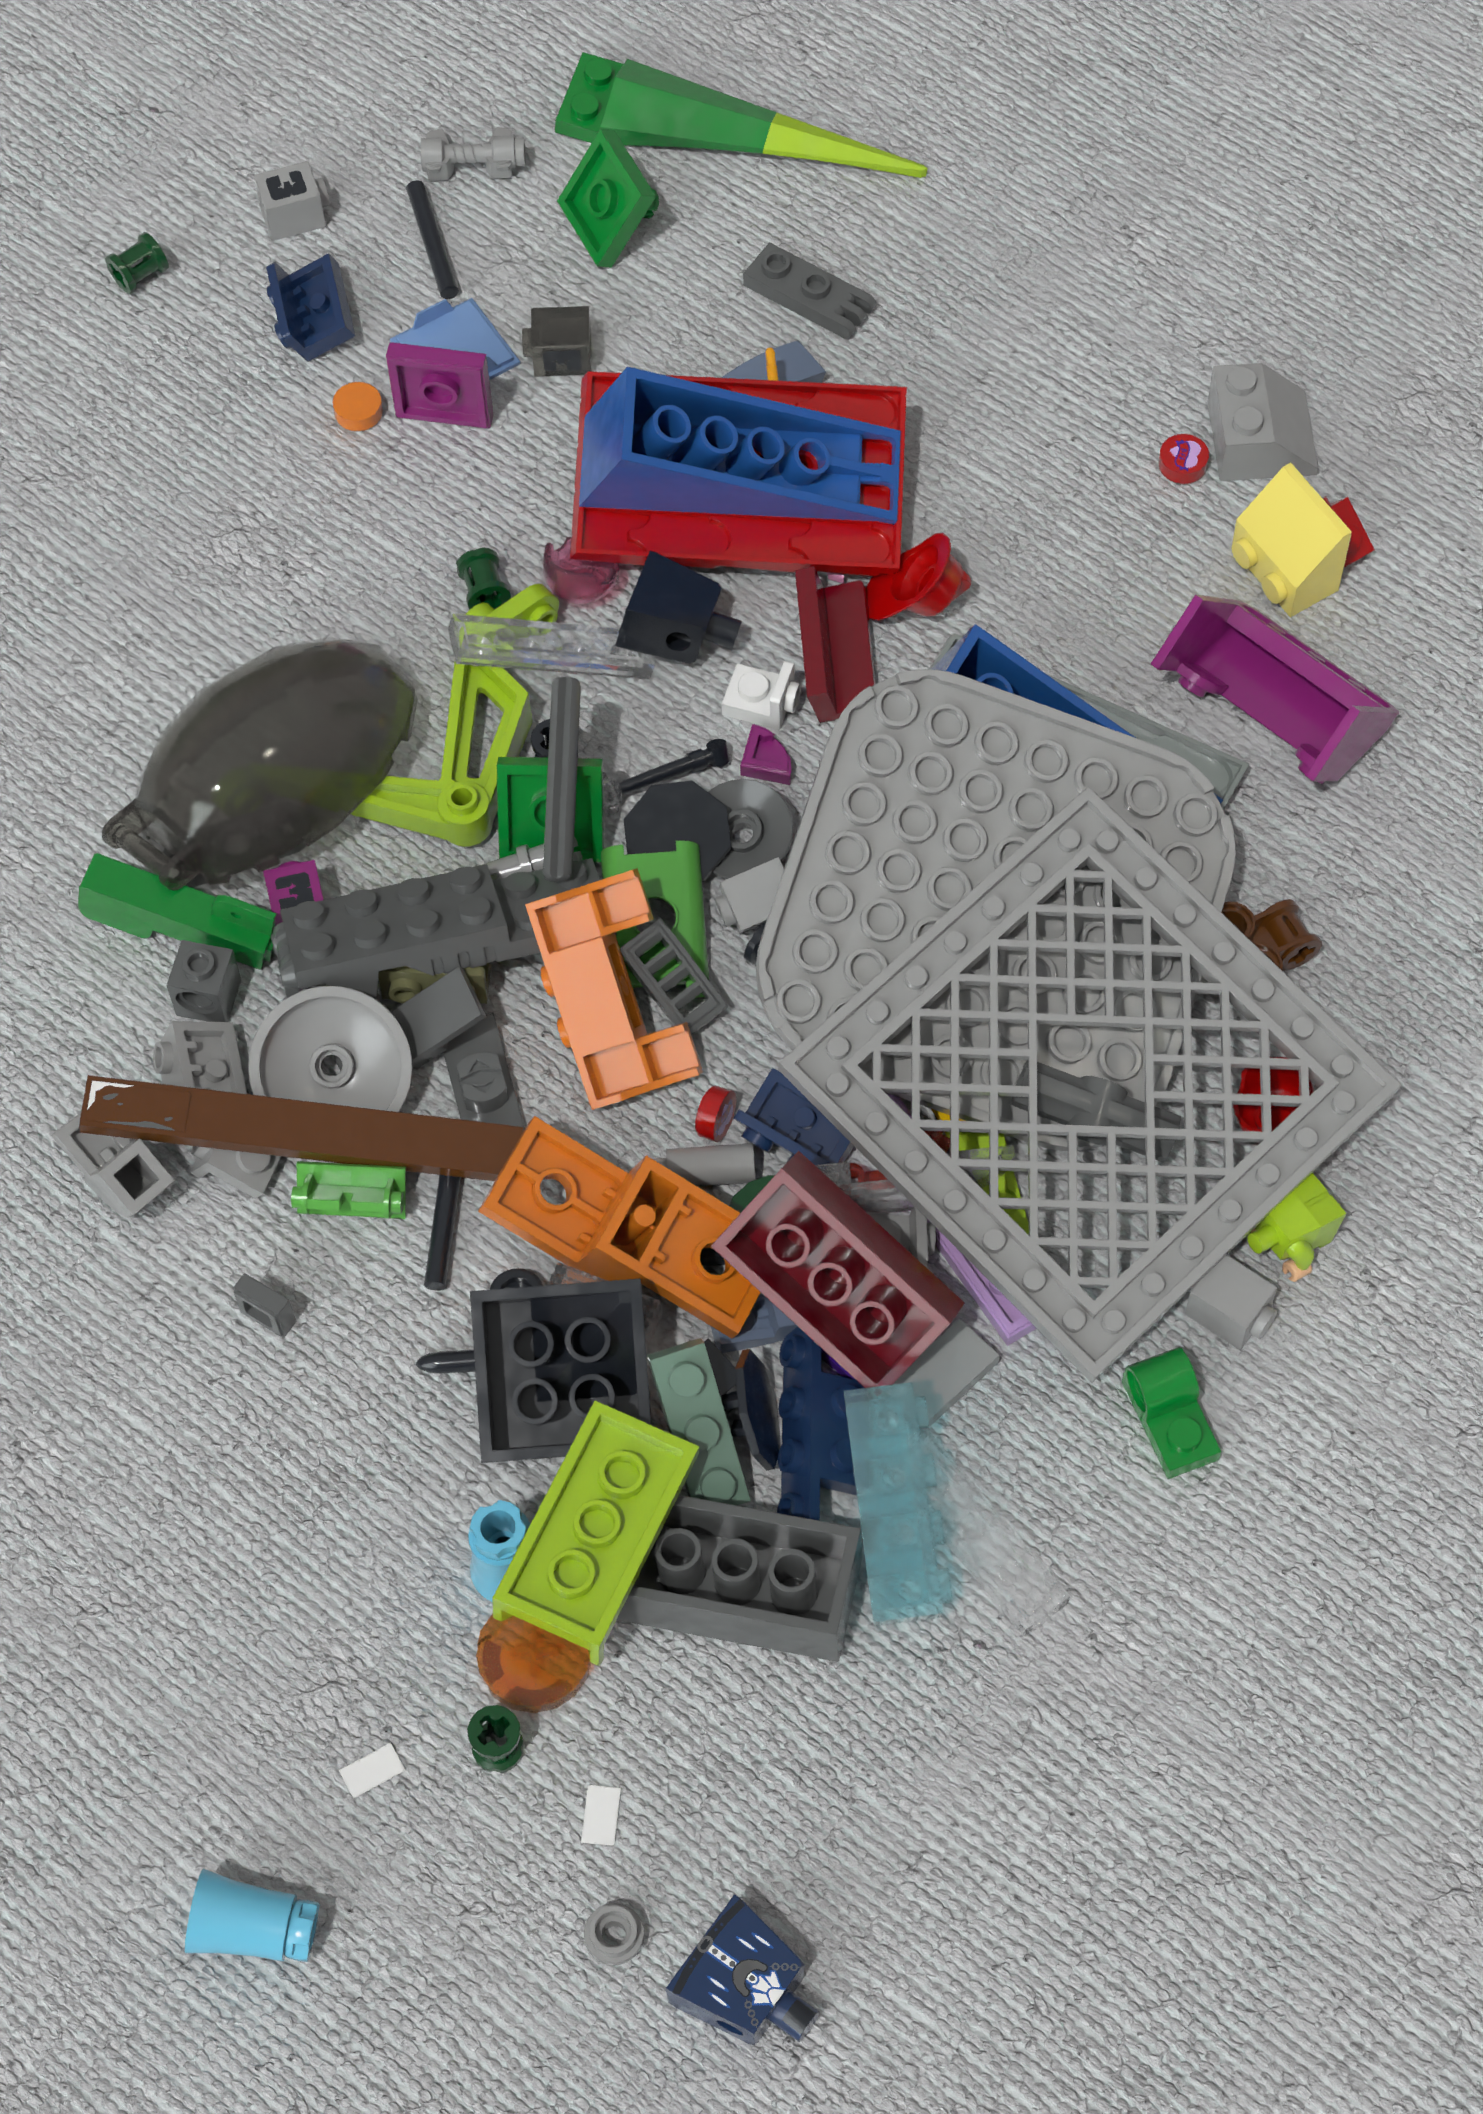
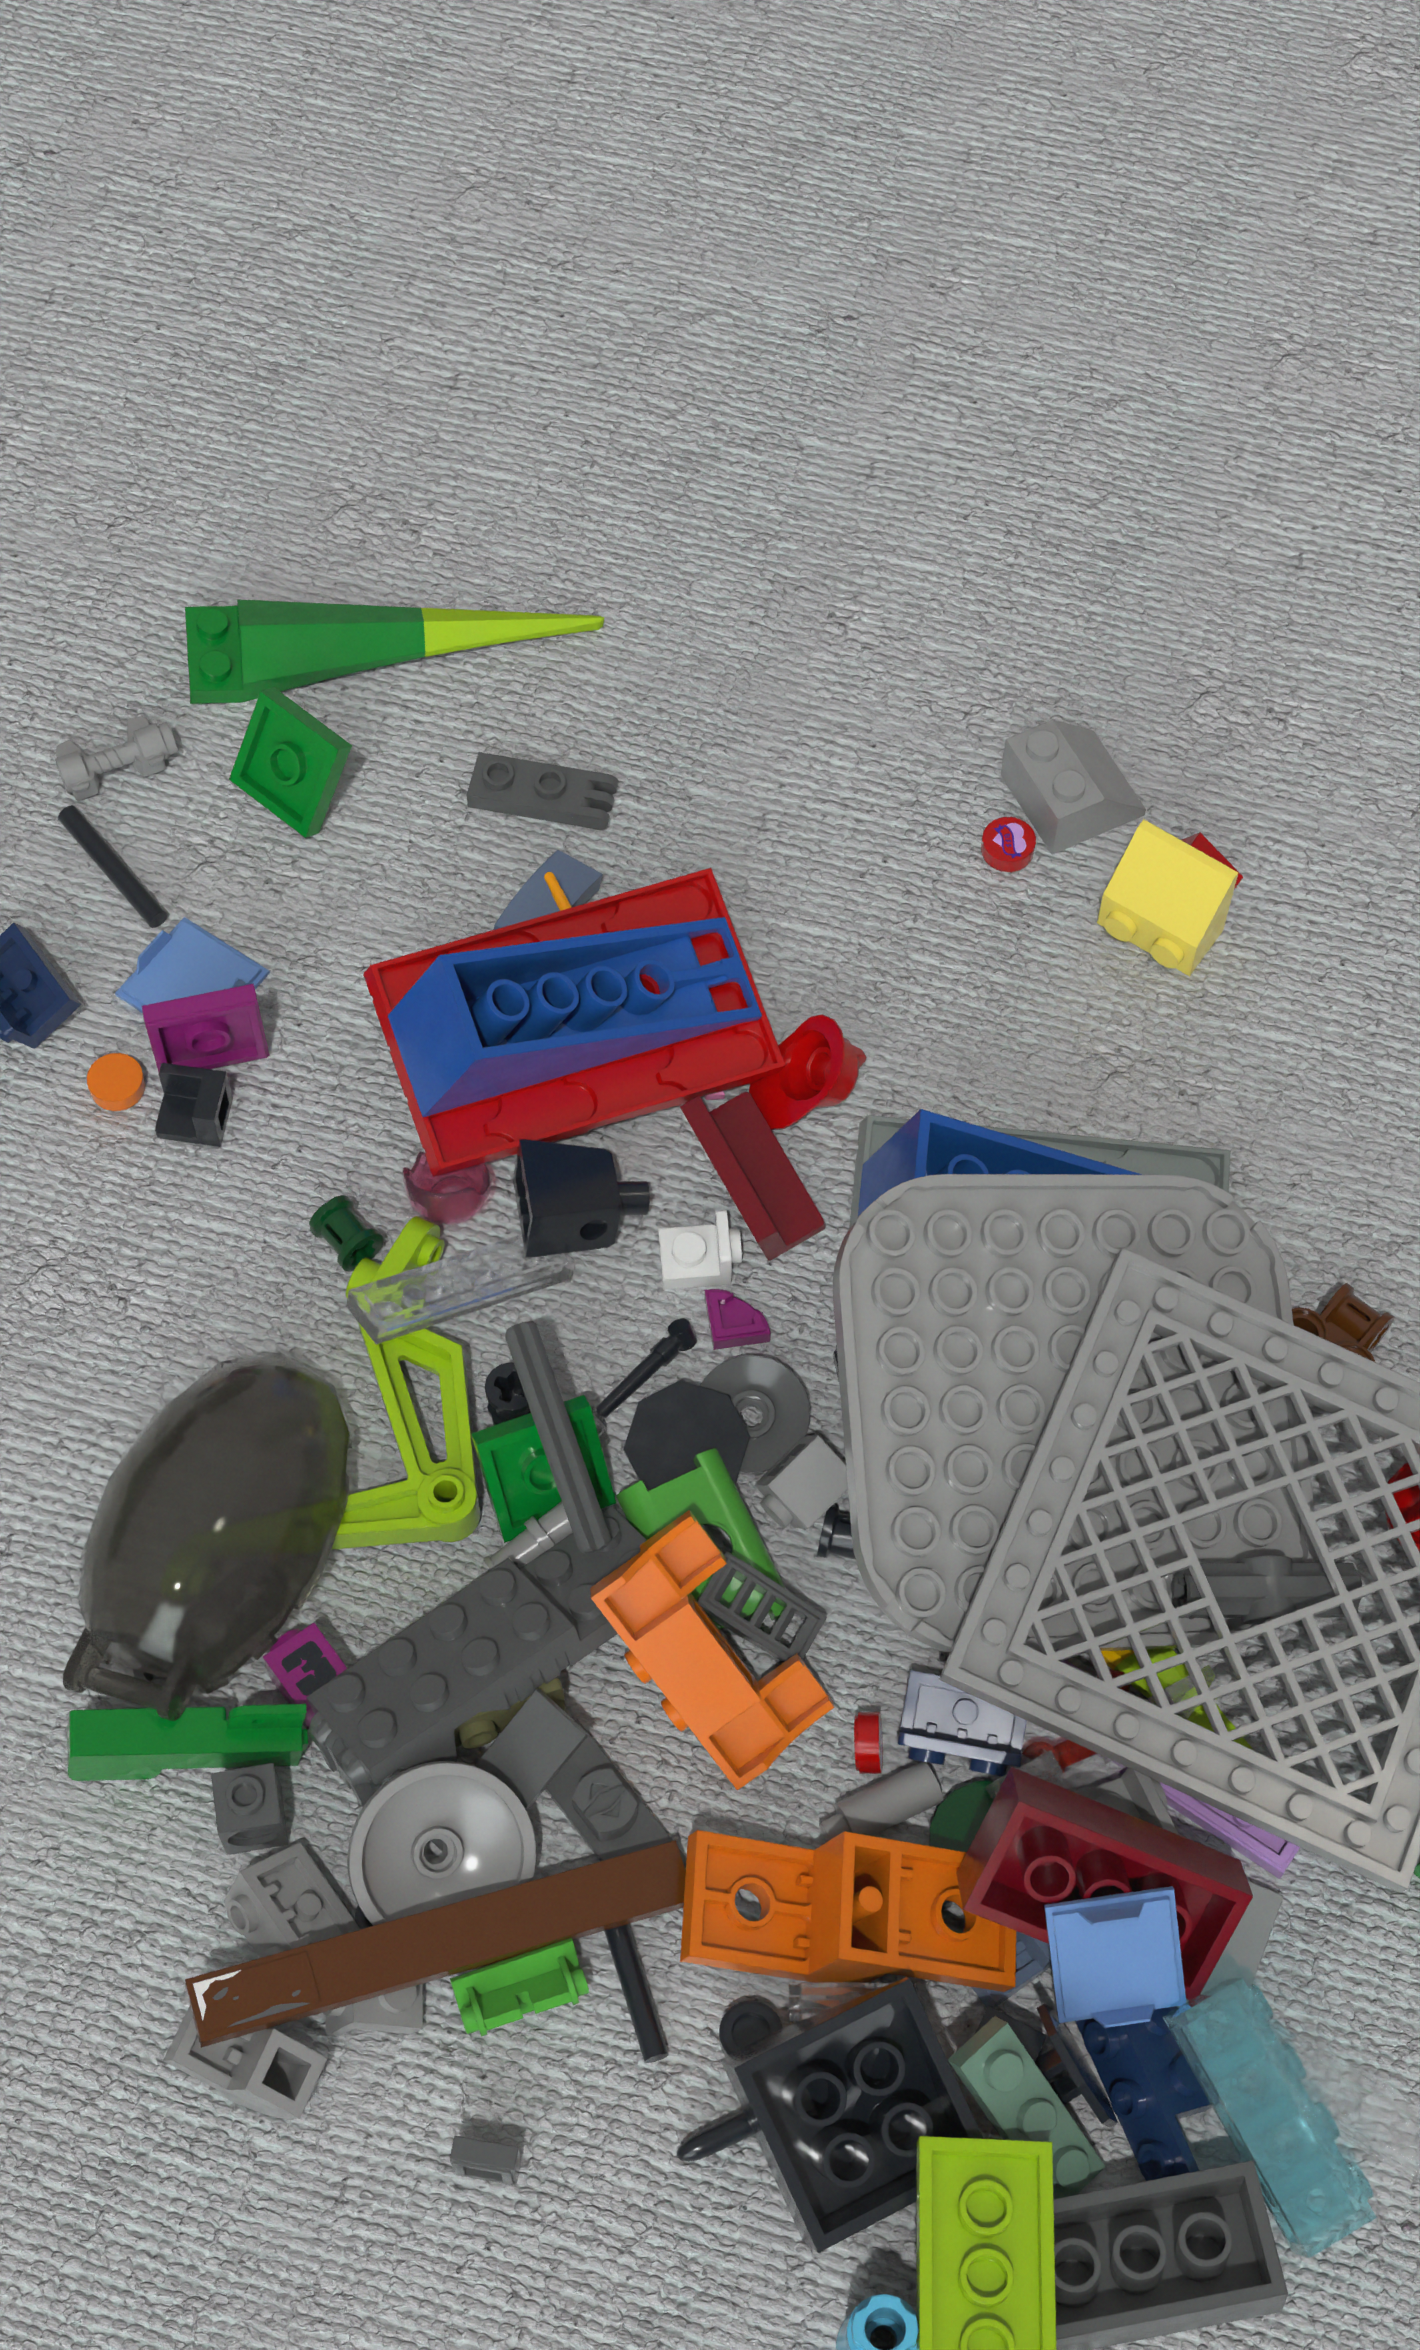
camera: 25 degrees left, 0 degrees up
(411, 444) = (193, 1104): none -> black panel
(559, 341) = (306, 935): clear smoke brick -> none
(822, 1331) = (1115, 1957): none -> medium blue piece
(1277, 681) = (1228, 1057): magenta windscreen -> none

